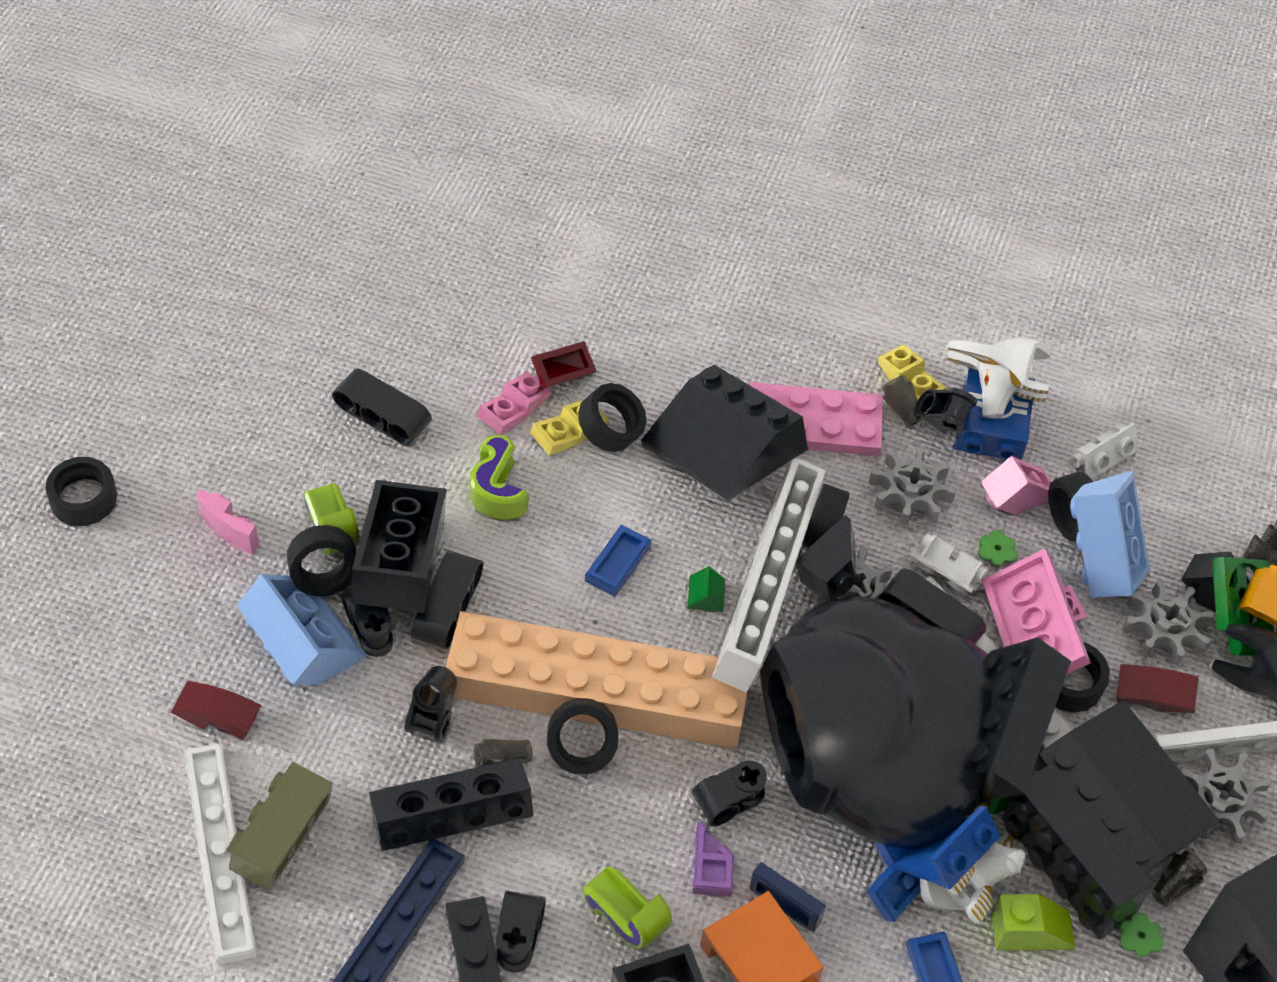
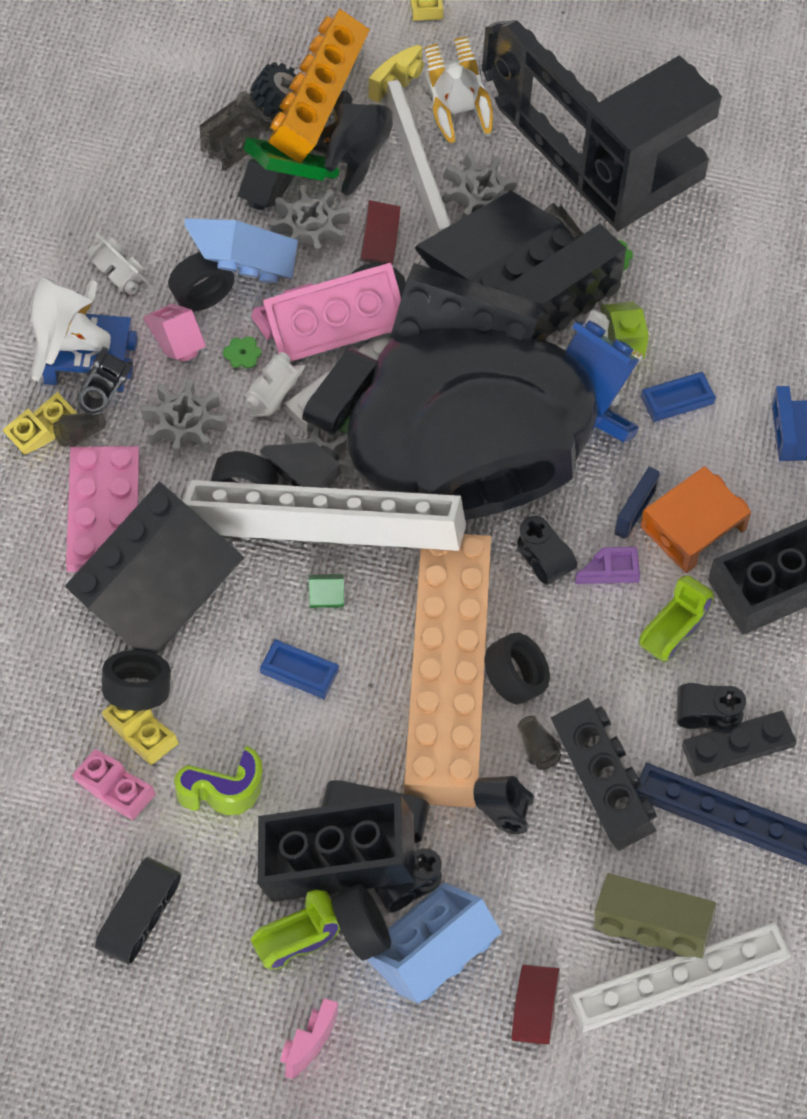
camera: 95 degrees left, 5 degrees up
(563, 364) = (62, 740): dark red slope -> none

